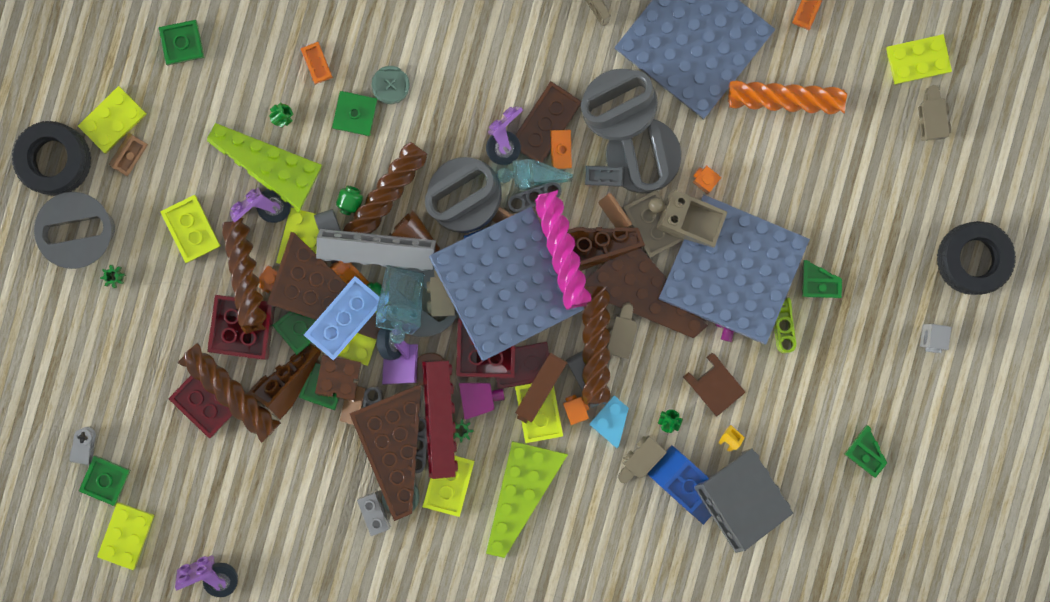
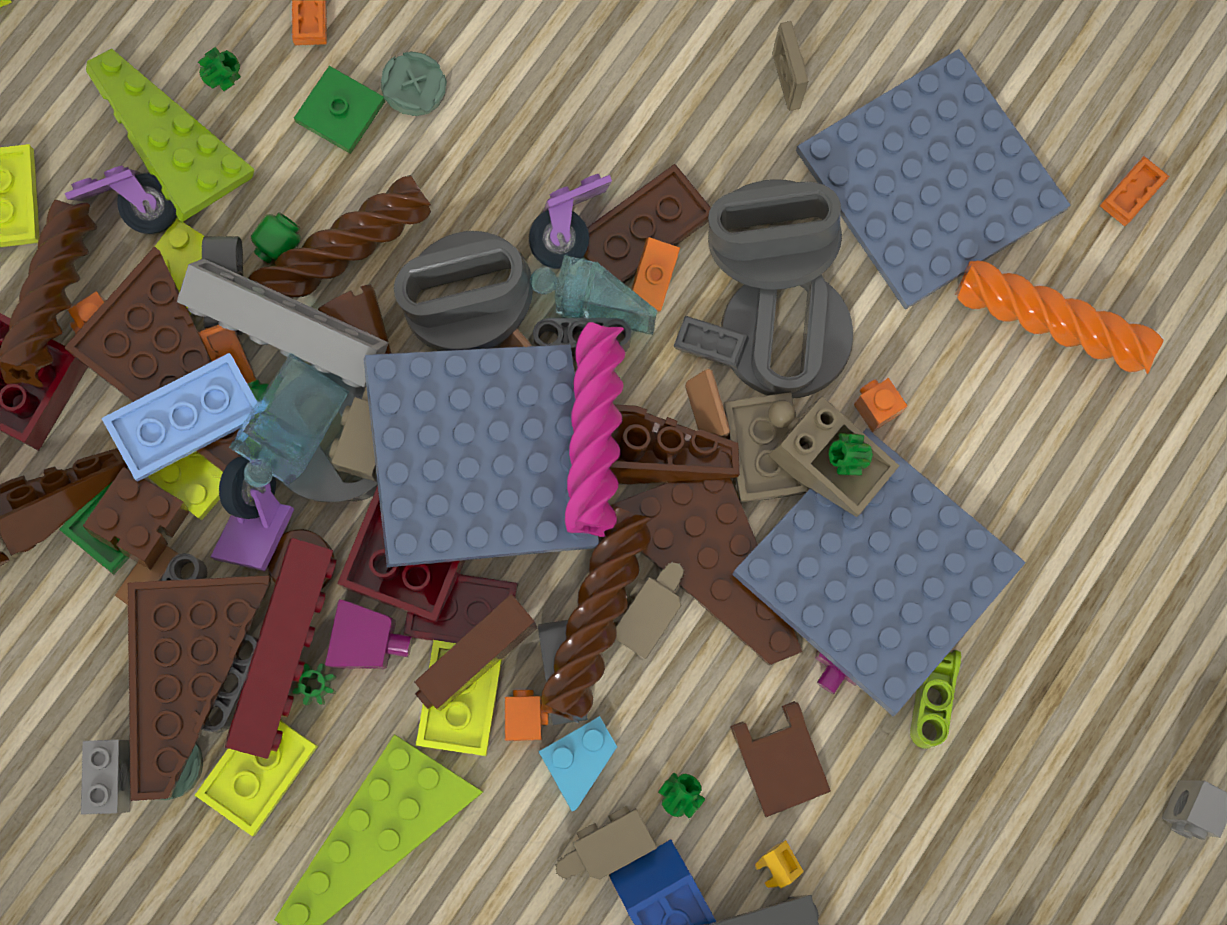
camera: 20 degrees right, 10 degrees down
(292, 330) = (87, 410): green plate -> none
(700, 216) = (850, 454): none -> green gear
(819, 282) = (1020, 645): green wing -> none

